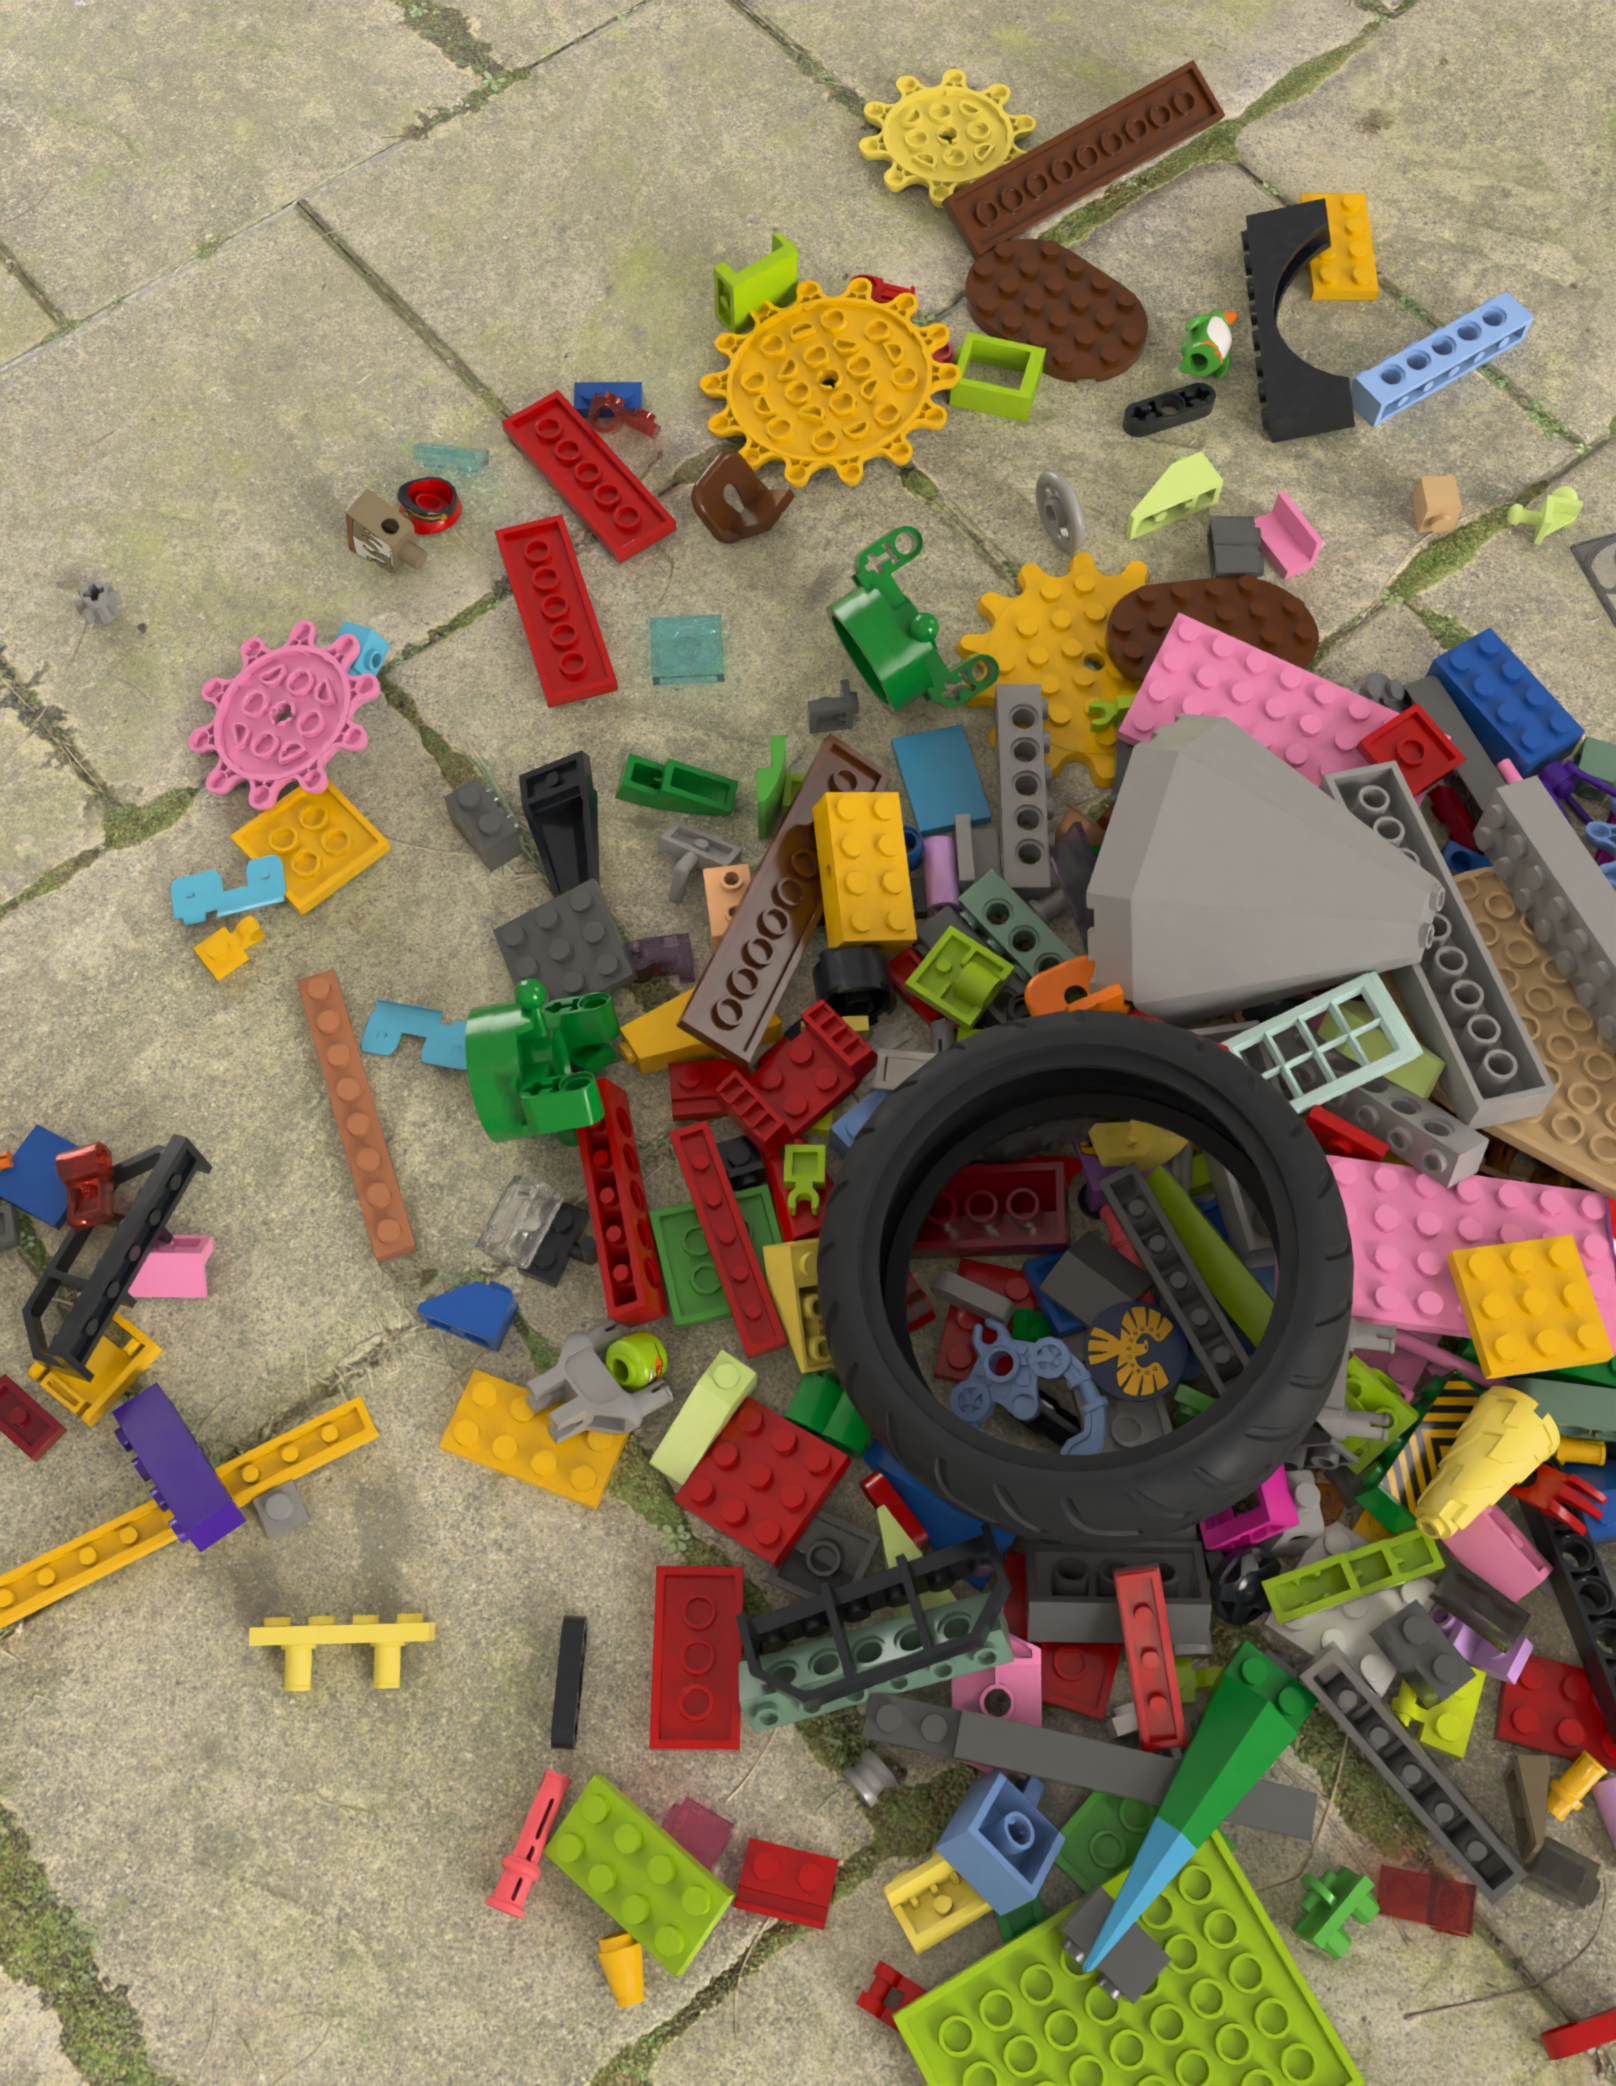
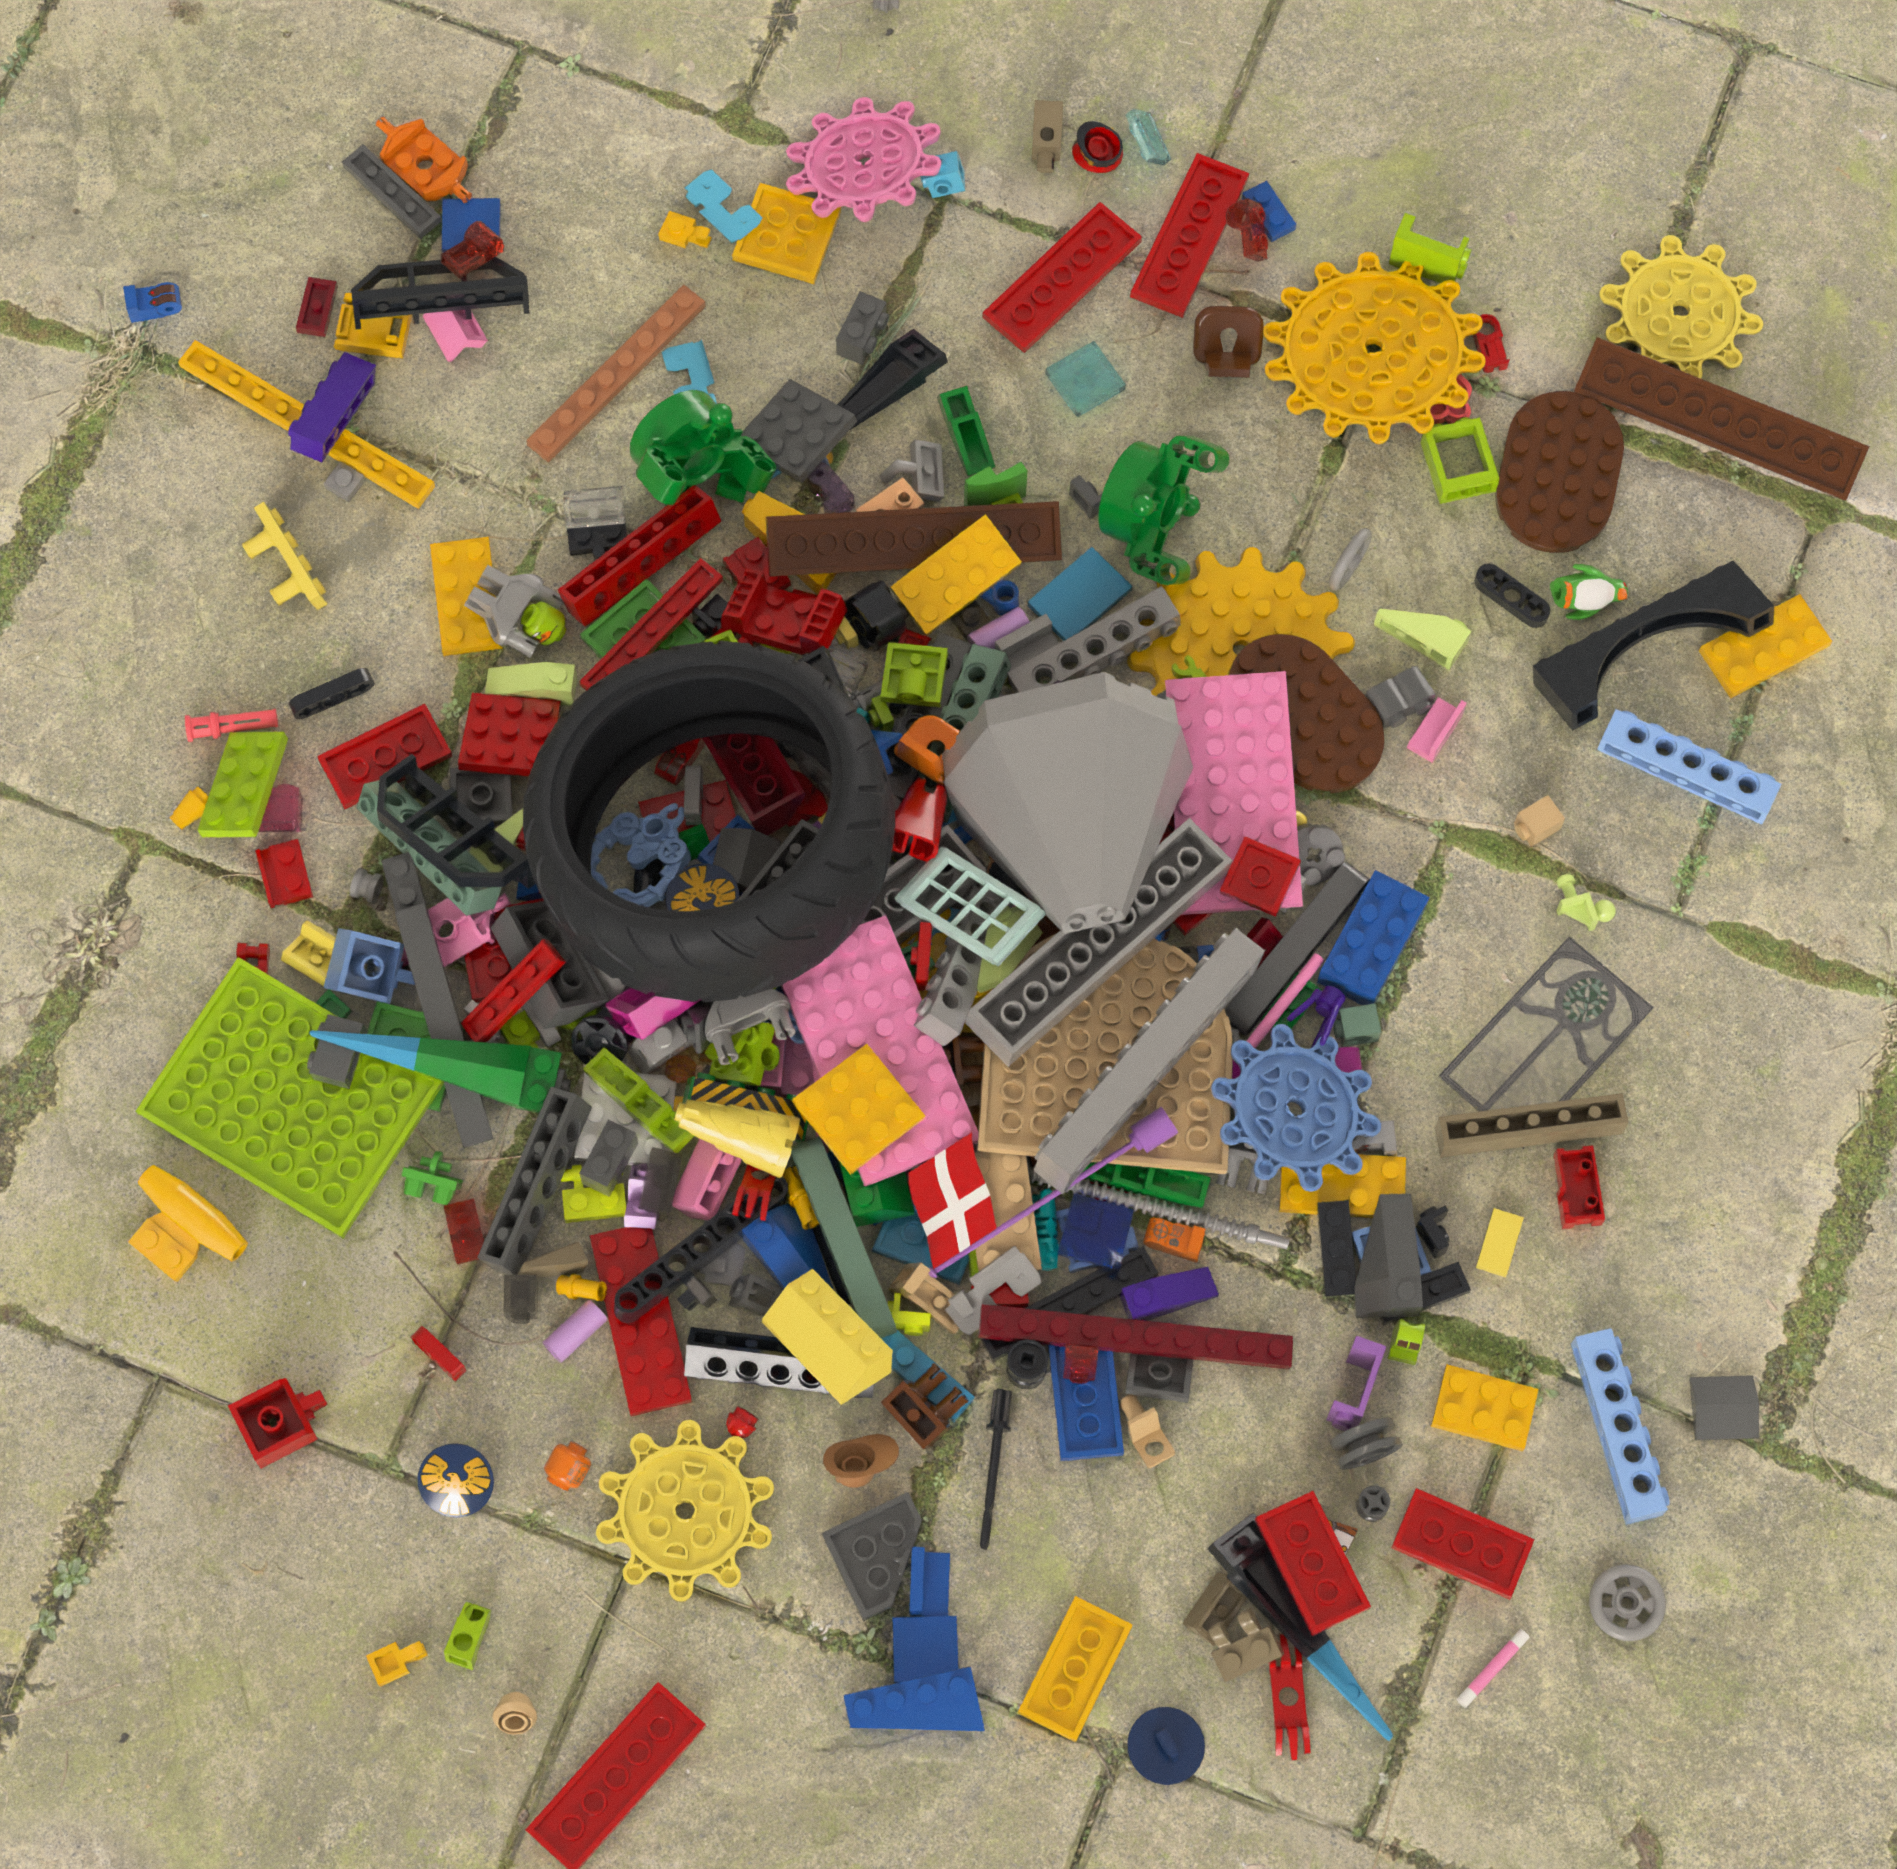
camera: 60 degrees right, 5 degrees up
(473, 1313) = (523, 516): blue slope -> none

